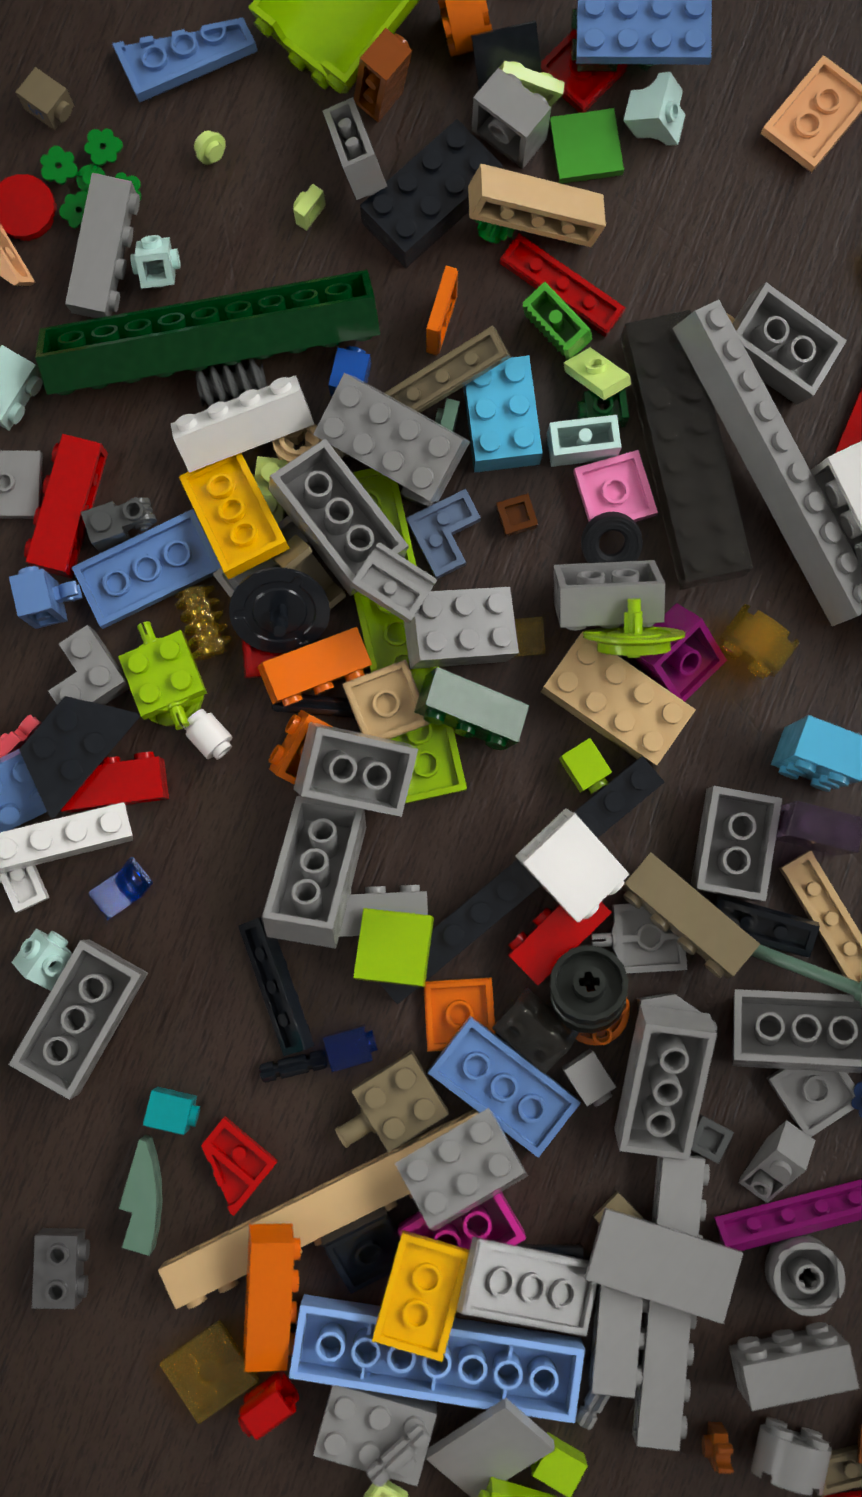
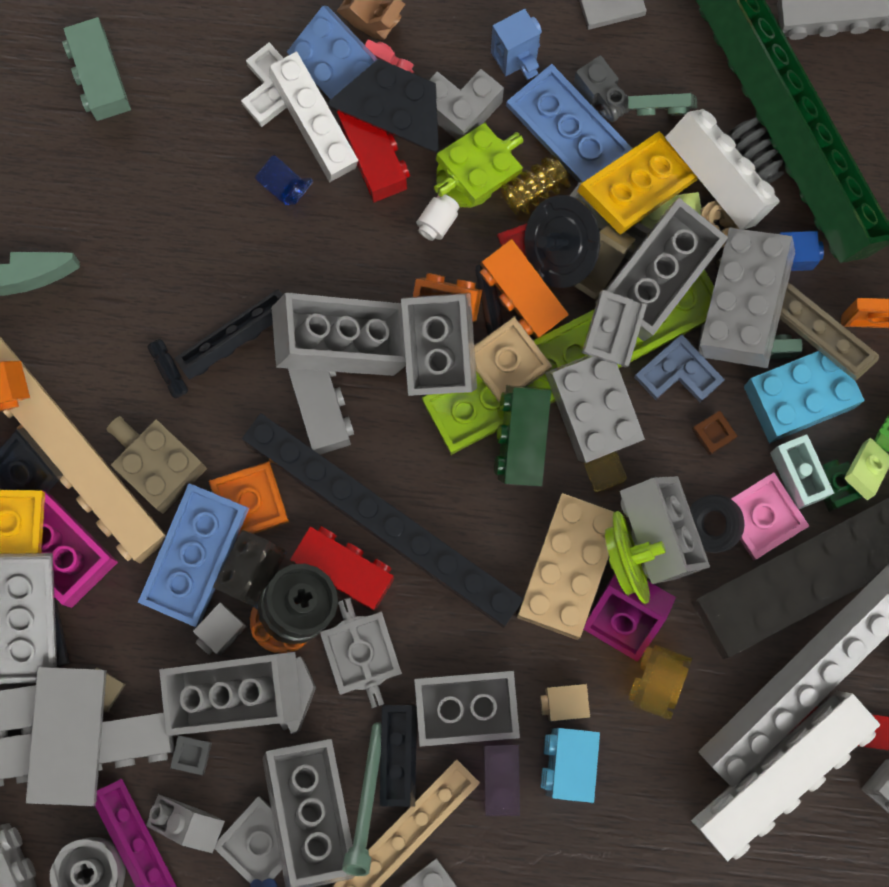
camera: 75 degrees right, 5 degrees down
(43, 958) = (207, 134): light aqua brick -> none
(67, 493) = (618, 42): red brick -> none
(78, 1019) = (163, 176): light grey brick -> none
(155, 262) = (844, 57): light aqua brick -> none
(157, 450) = (674, 103): none -> sand green plate
(171, 1111) = (104, 275): teal brick -> none
(237, 1162) = (73, 342): red wing -> none
(350, 1047) = (195, 411): clear blue brick -> none
(393, 947) = (290, 420): lime tile -> none
(461, 1169) = (109, 528): light grey brick -> none
(573, 865) = (403, 557): white brick -> none
(586, 766) = (501, 554): lime brick -> none
(689, 916) = (388, 679): dark tan brick -> none
(752, 742) = (565, 702): none -> tan brick

